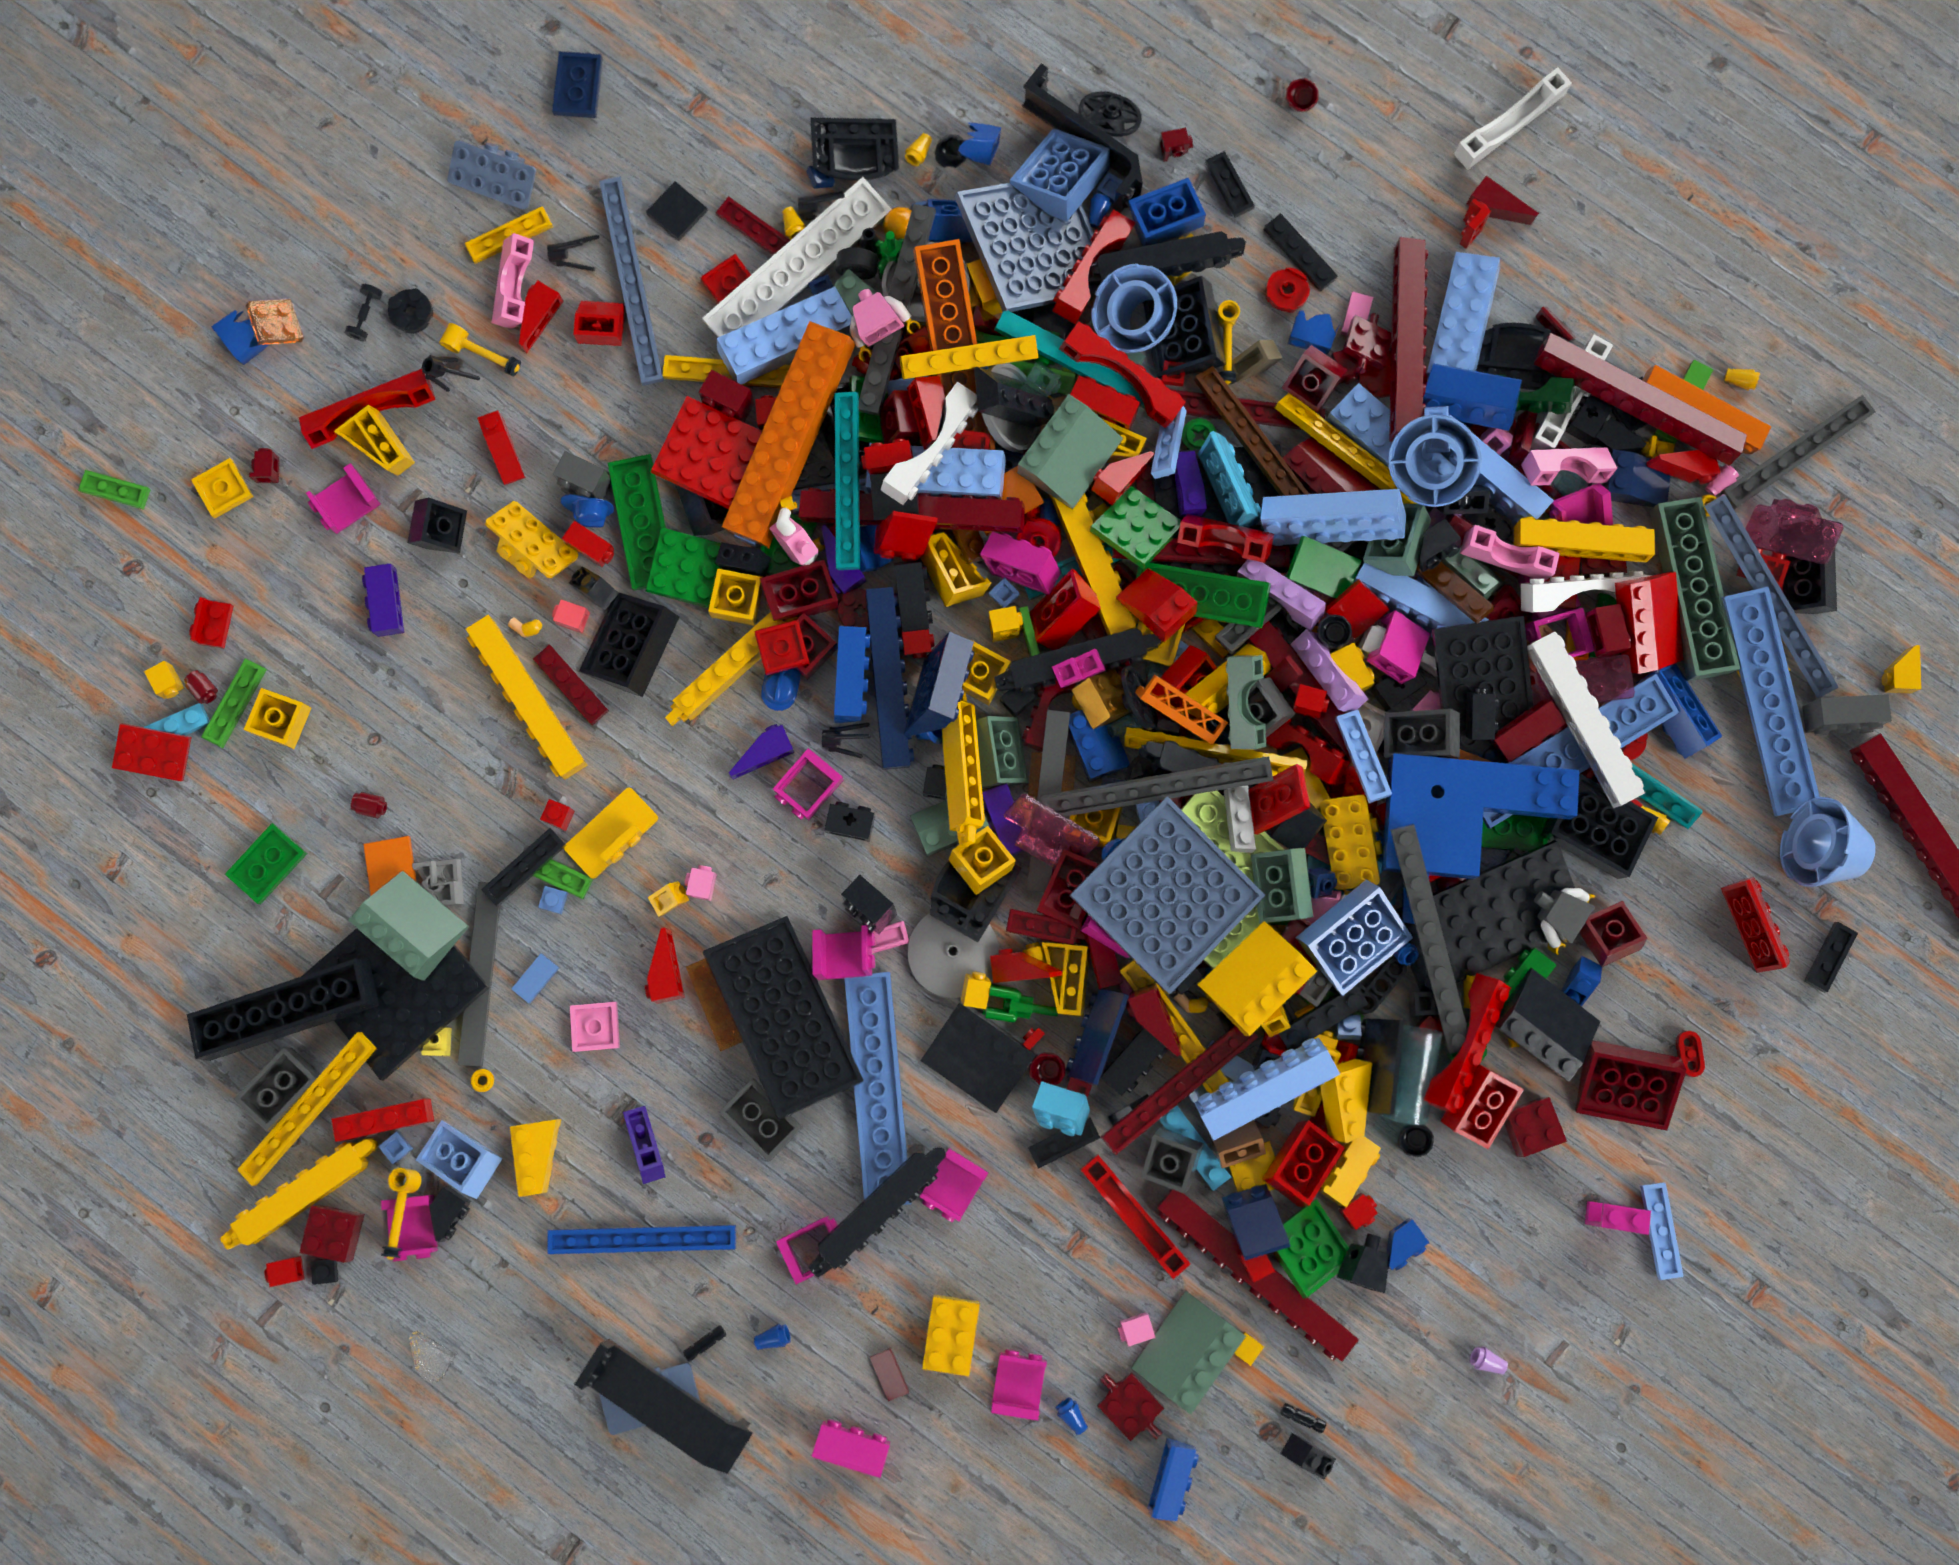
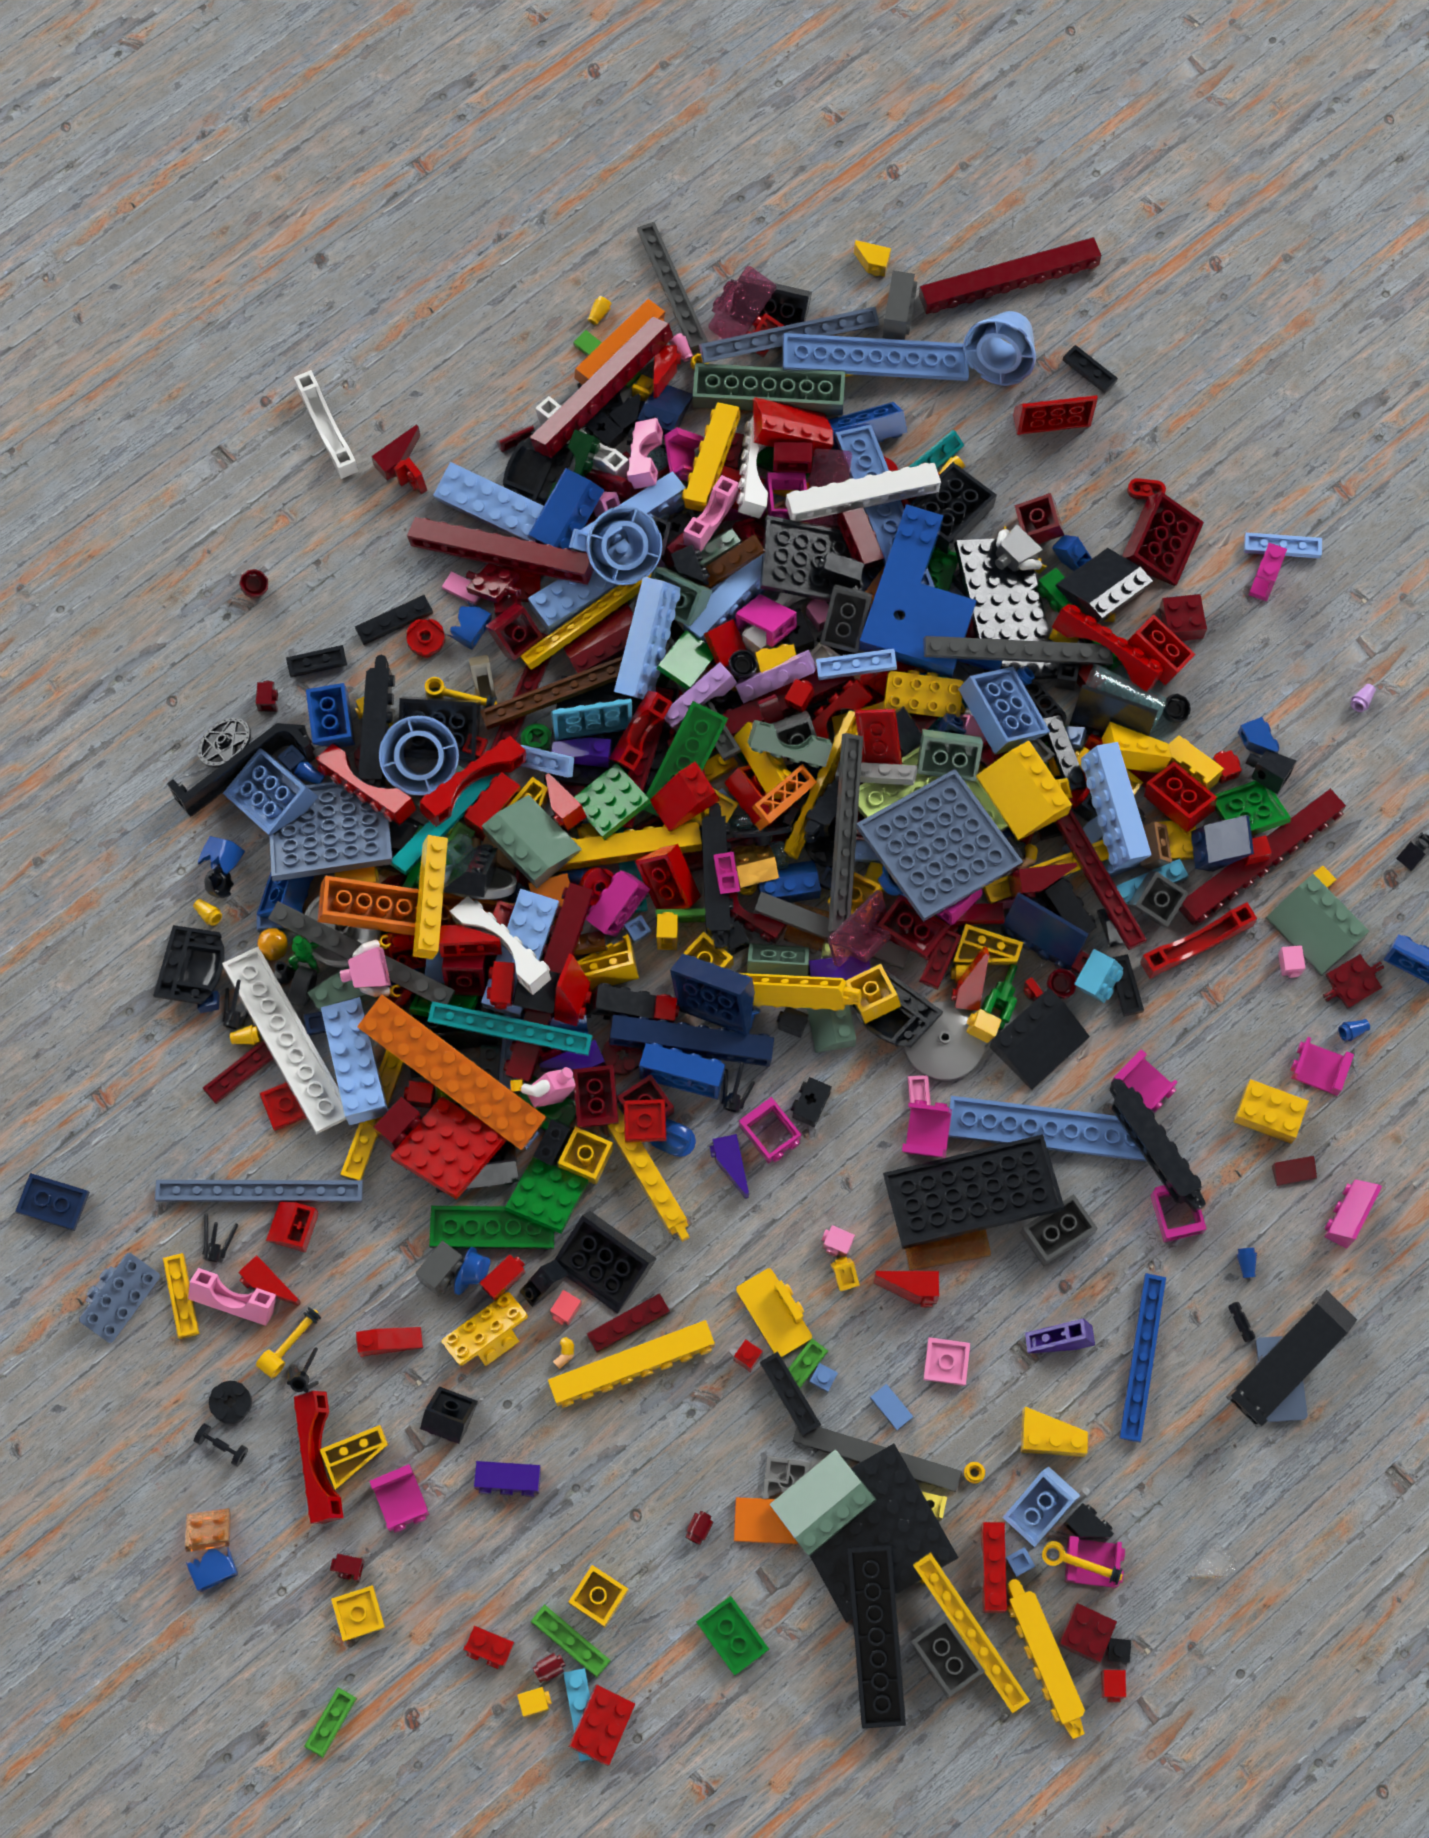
camera: 75 degrees left, 10 degrees down
(676, 211) = (202, 1137): black tile -> none
(868, 904) = (890, 1097): black brick -> none
(1303, 1418) = (1385, 849): black axle -> none

